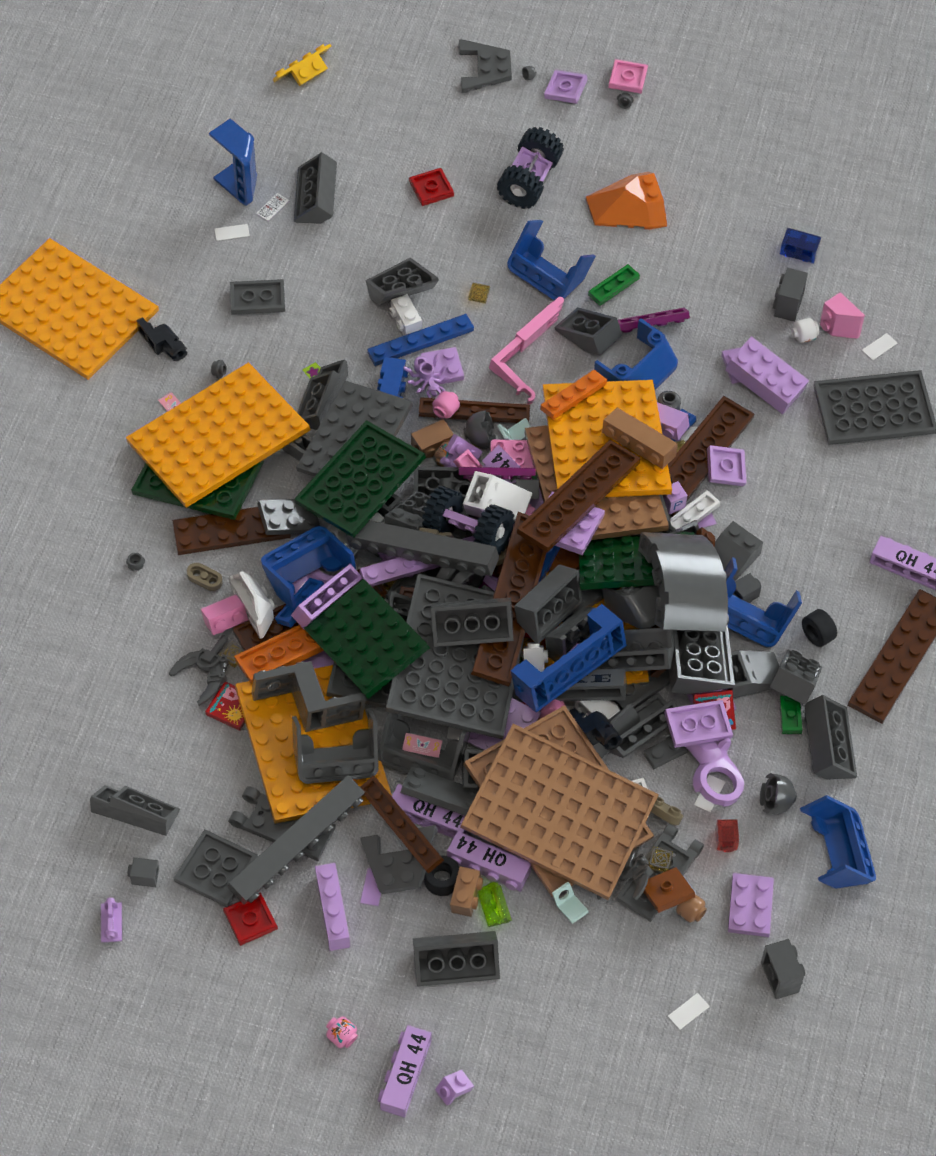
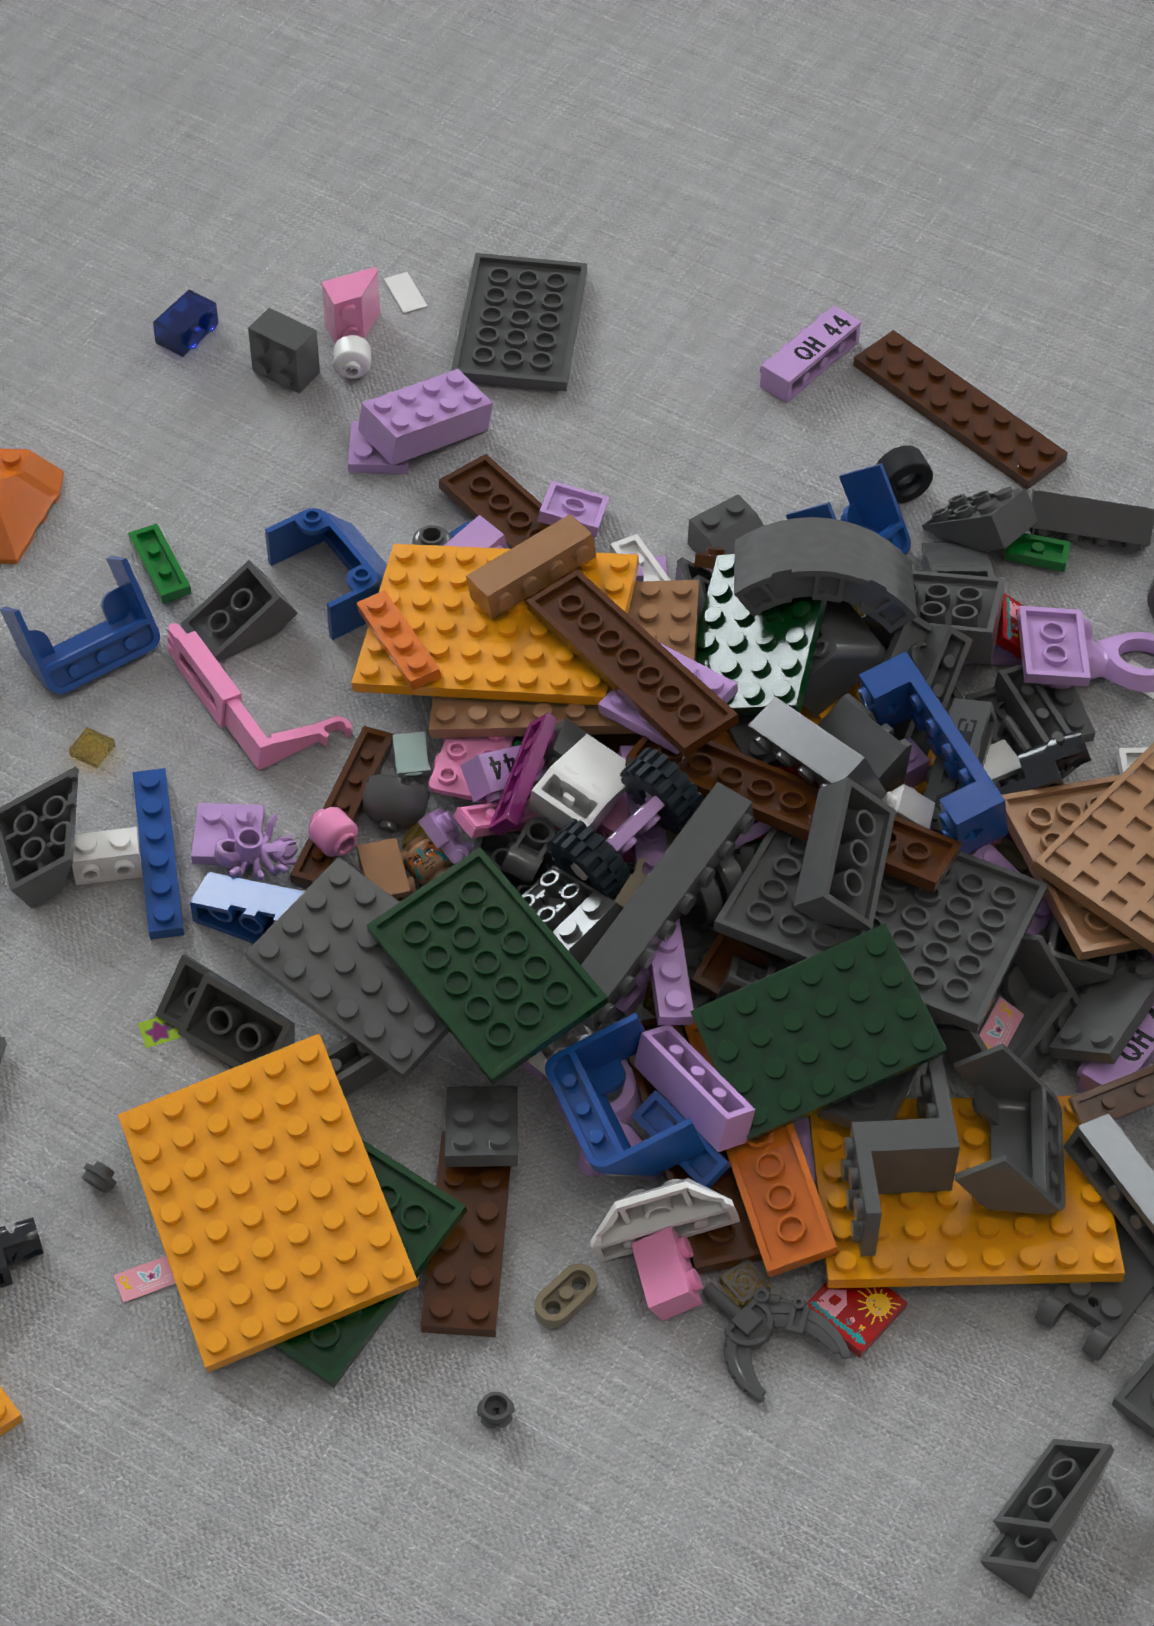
camera: 75 degrees left, 5 degrees down
(658, 318) = (252, 523): magenta plate -> none

